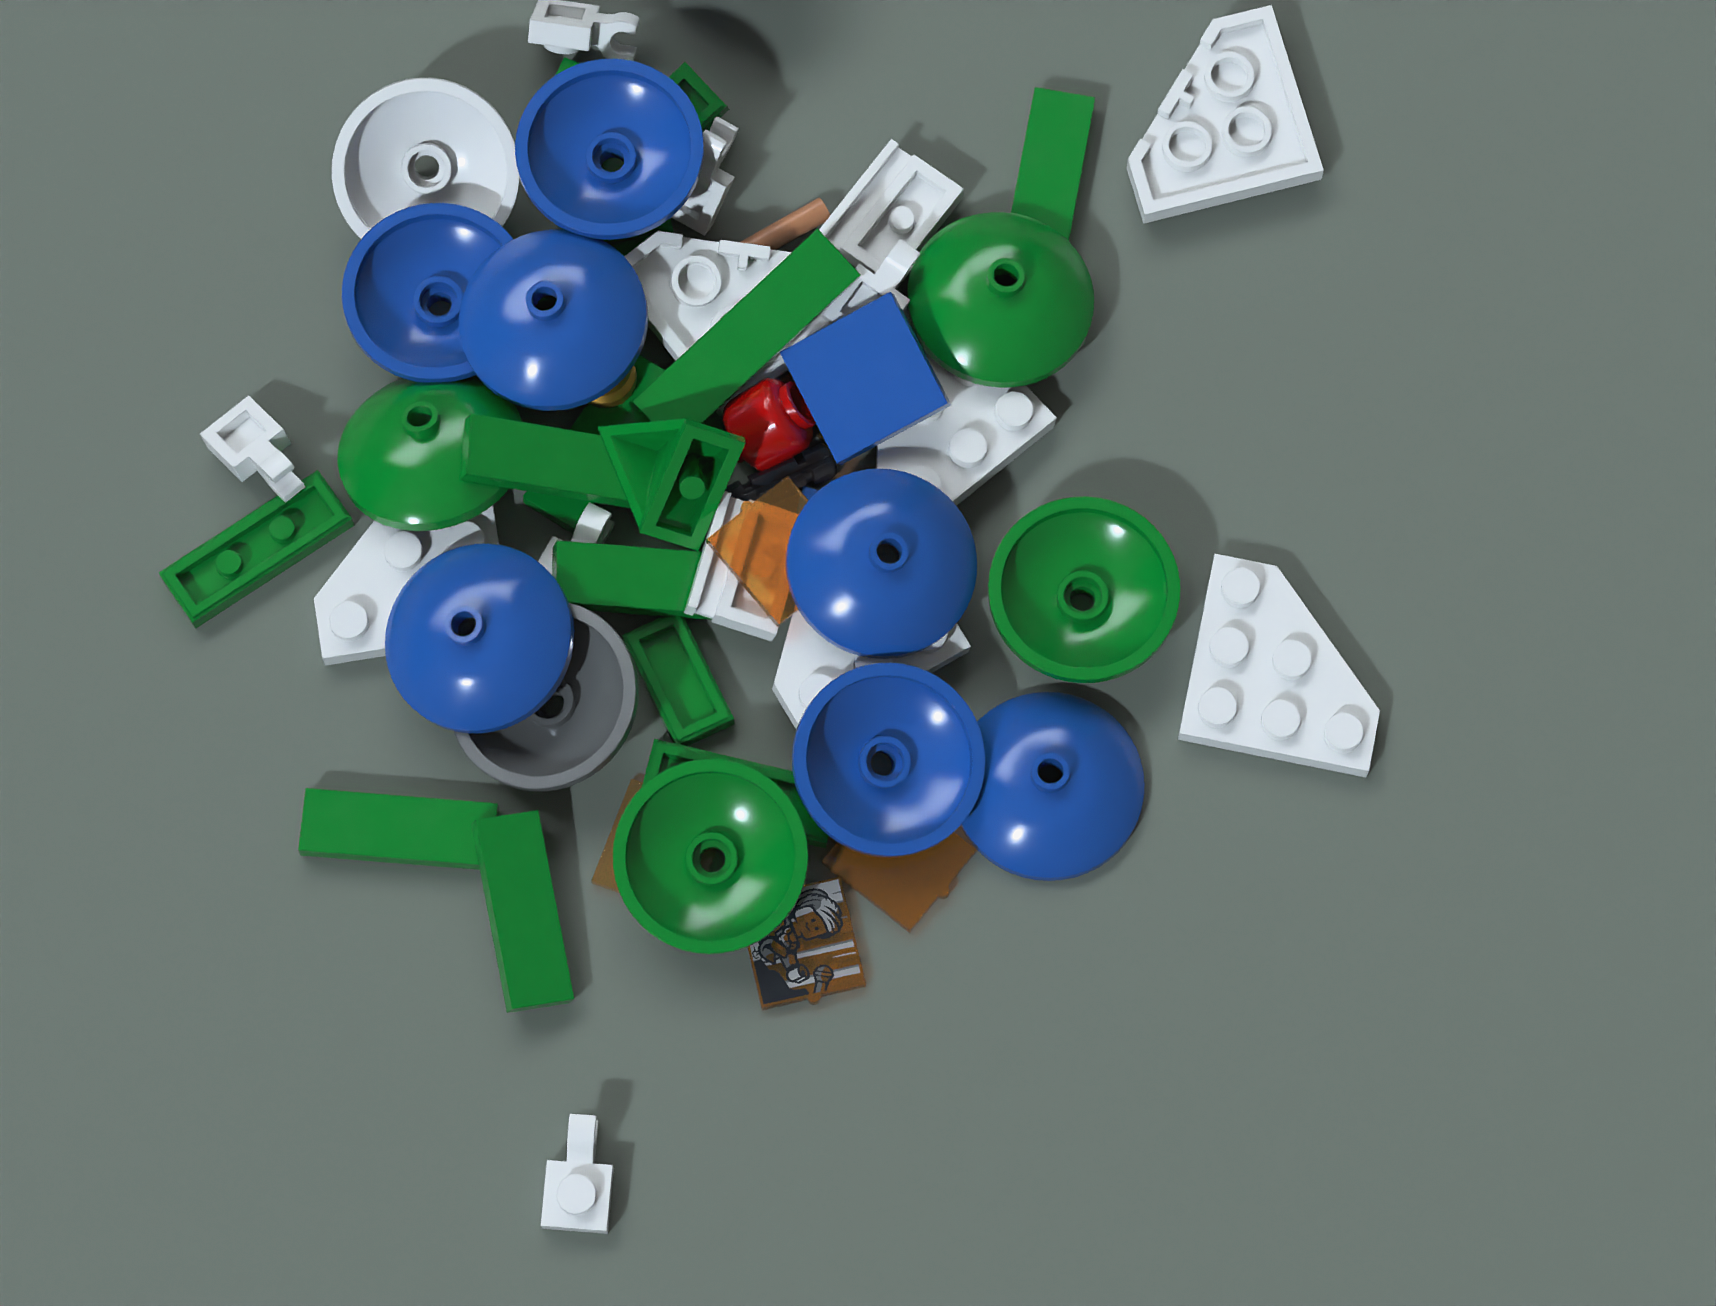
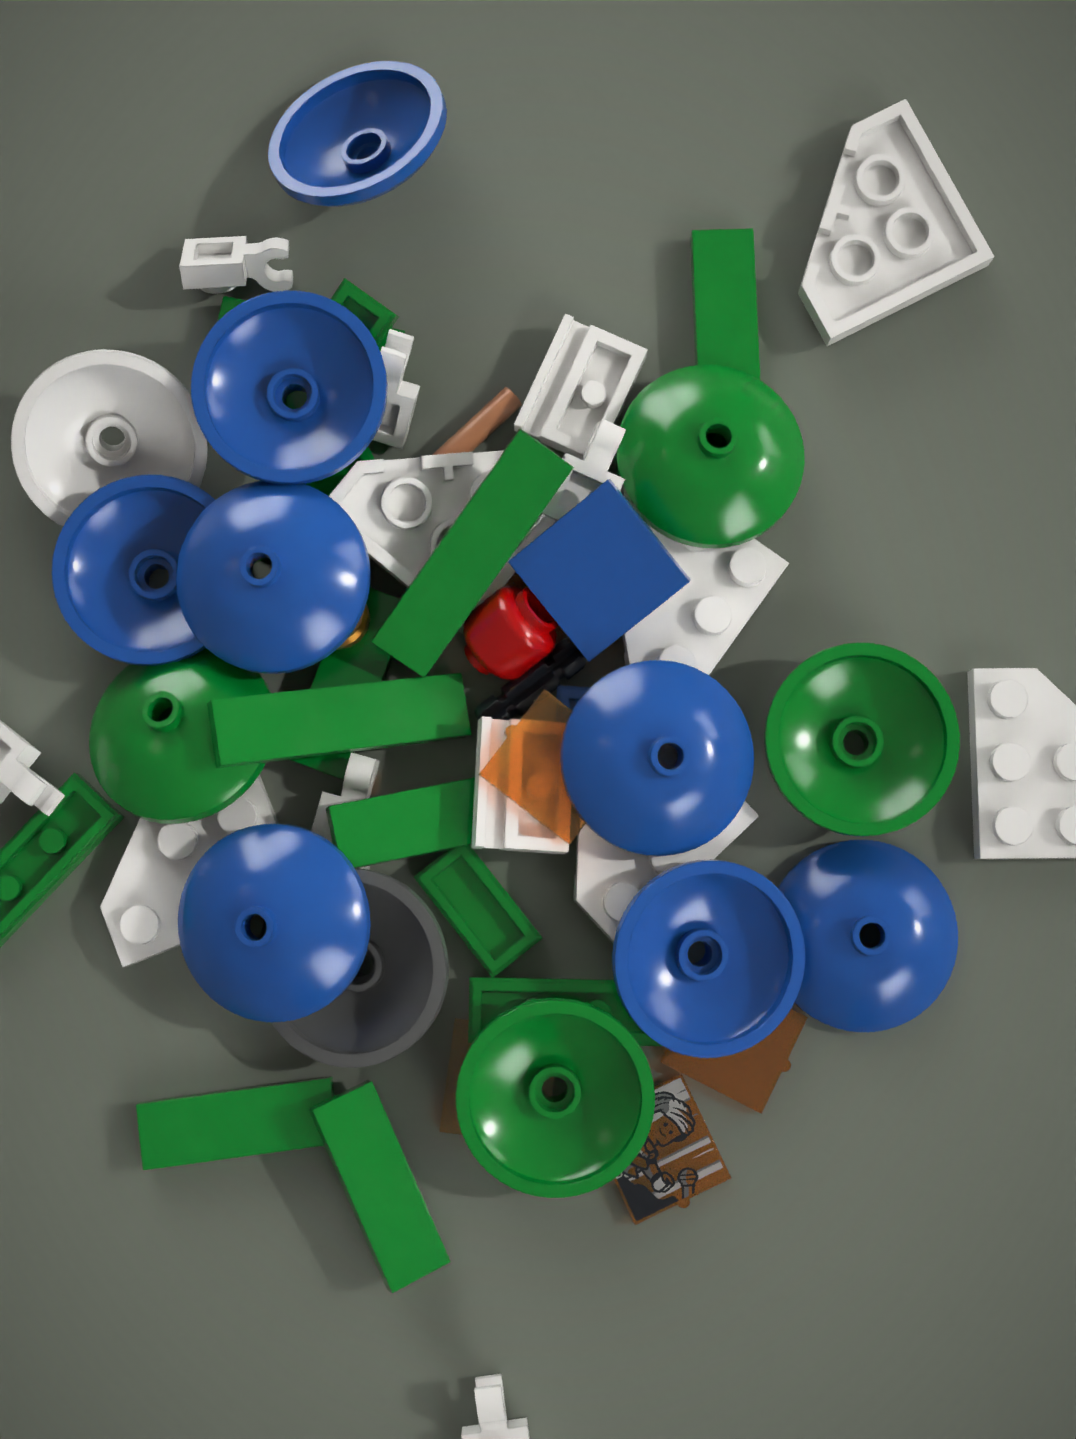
camera: 15 degrees left, 10 degrees up
(673, 474) = (429, 713): green slope -> none

